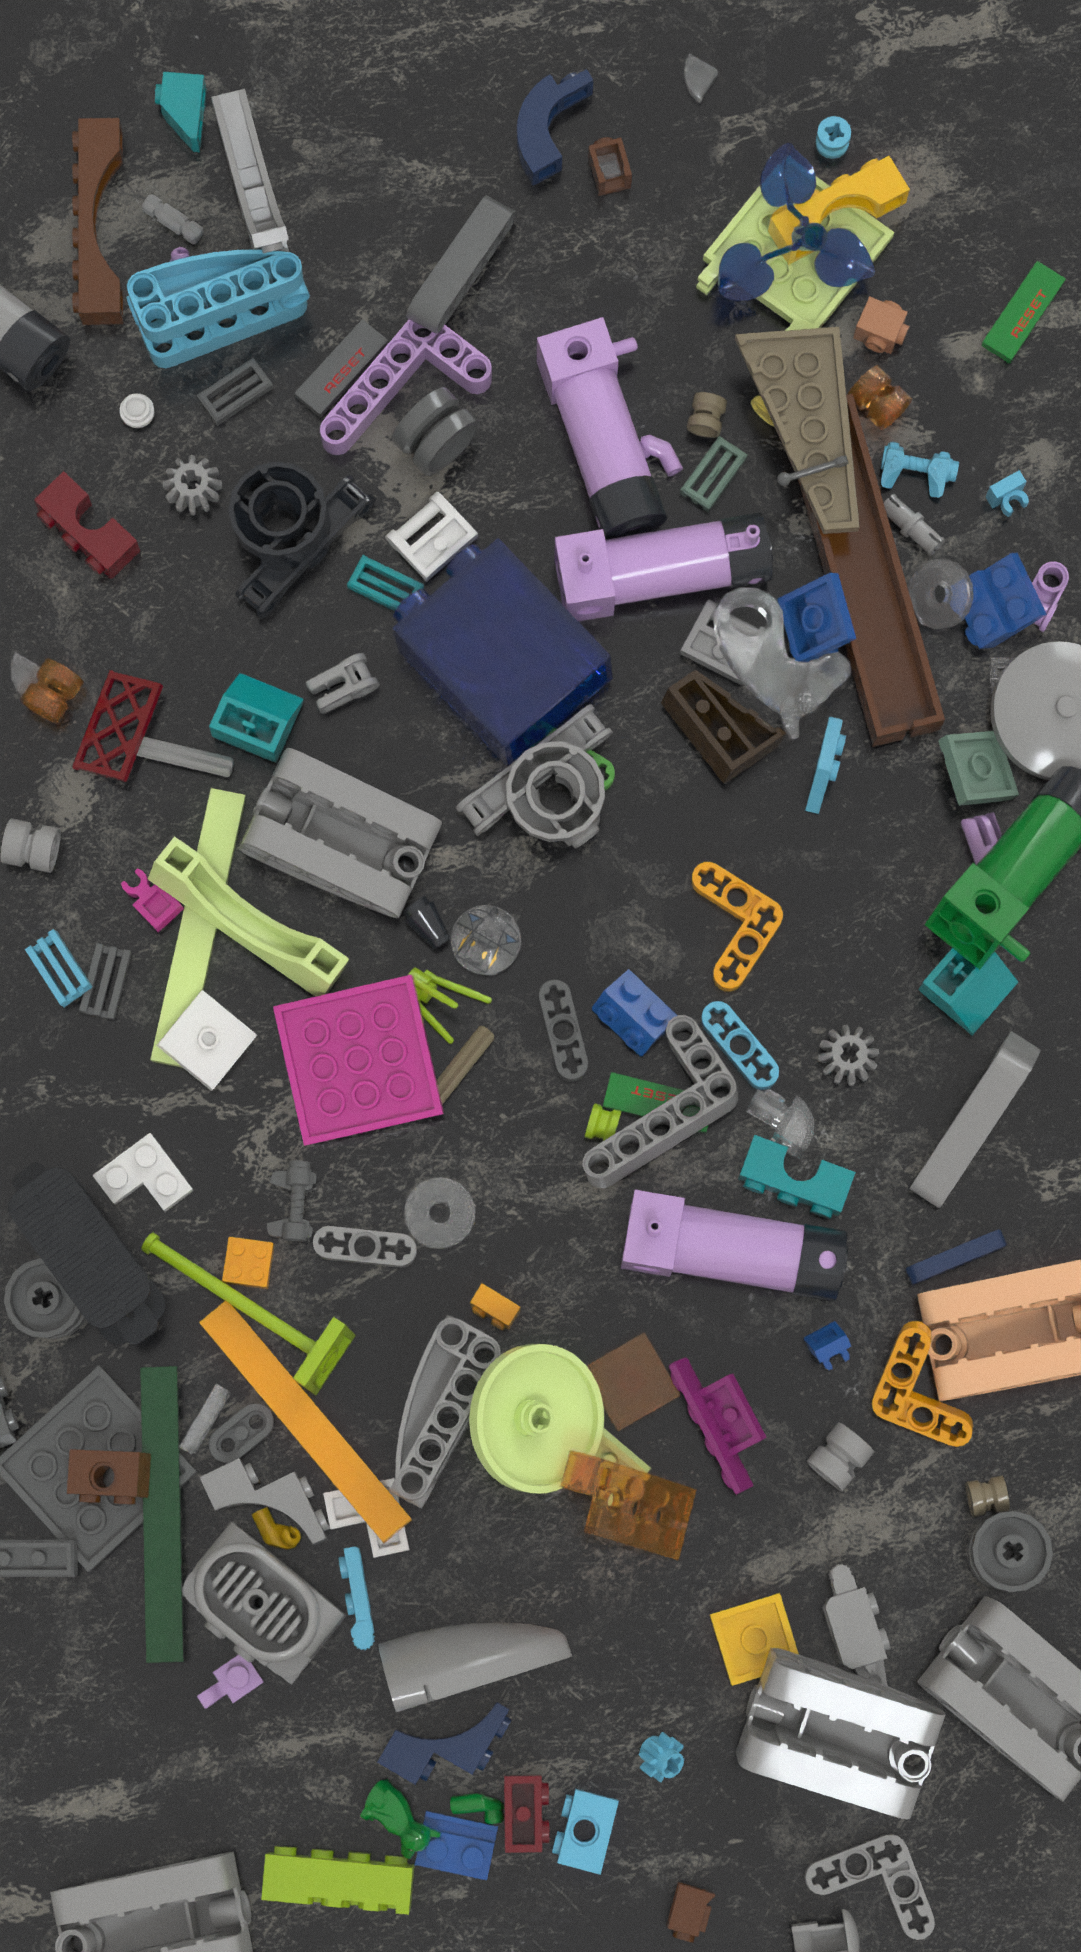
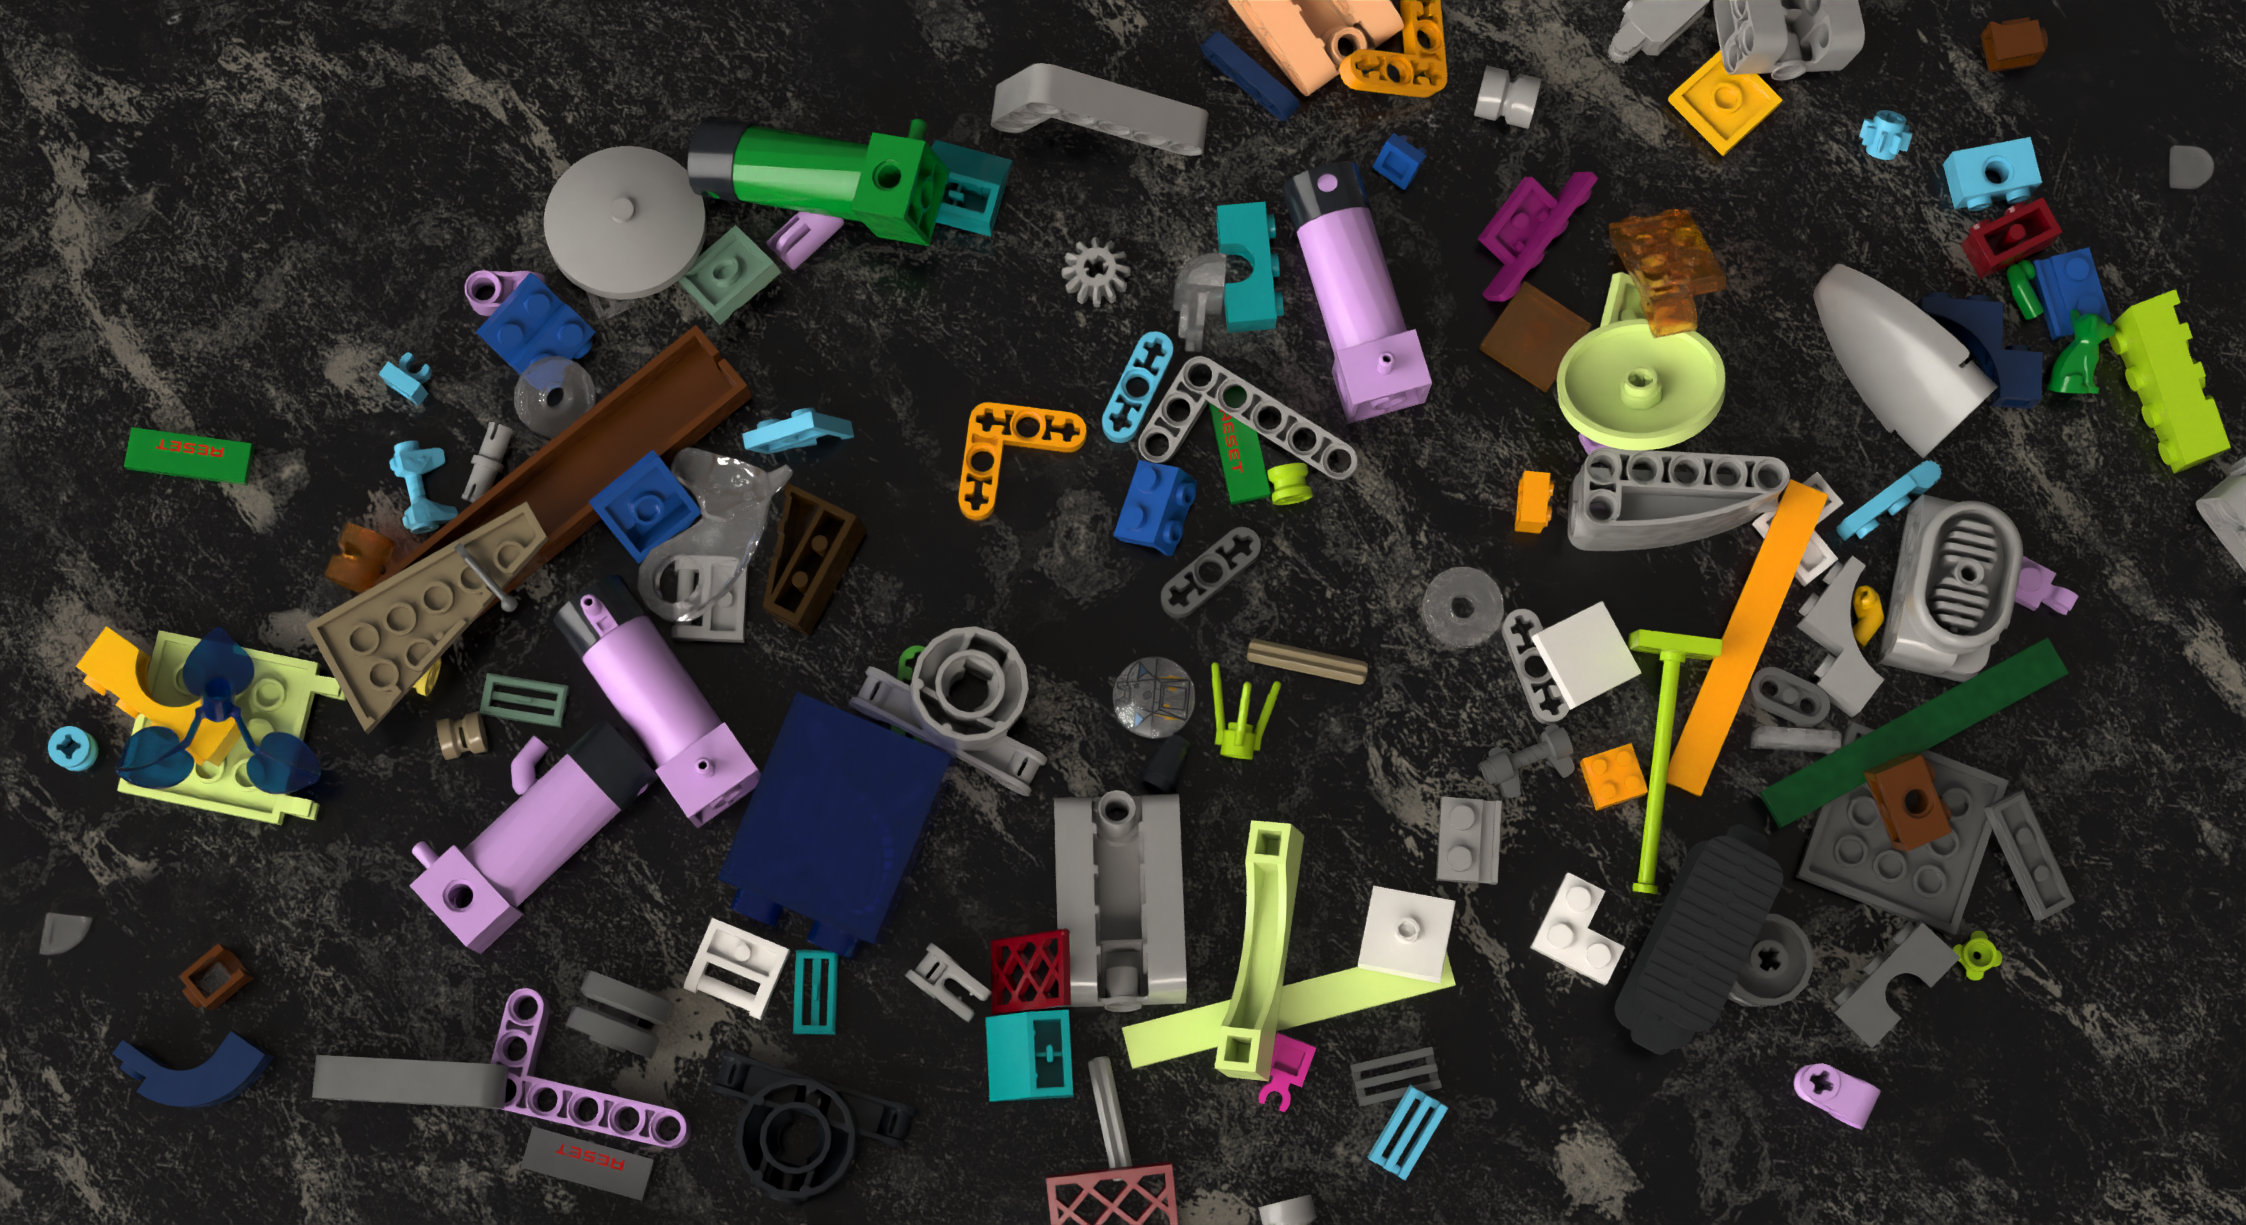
camera: 115 degrees left, 0 degrees up
(255, 1126) = (1468, 840): none -> light grey plate
(310, 754) = (1058, 970): none -> dark red window
(353, 1287) = (1586, 655): none -> white tile
(358, 1060) = (1350, 763): dark pink plate -> none
(881, 325) = (274, 596): nougat brick -> none

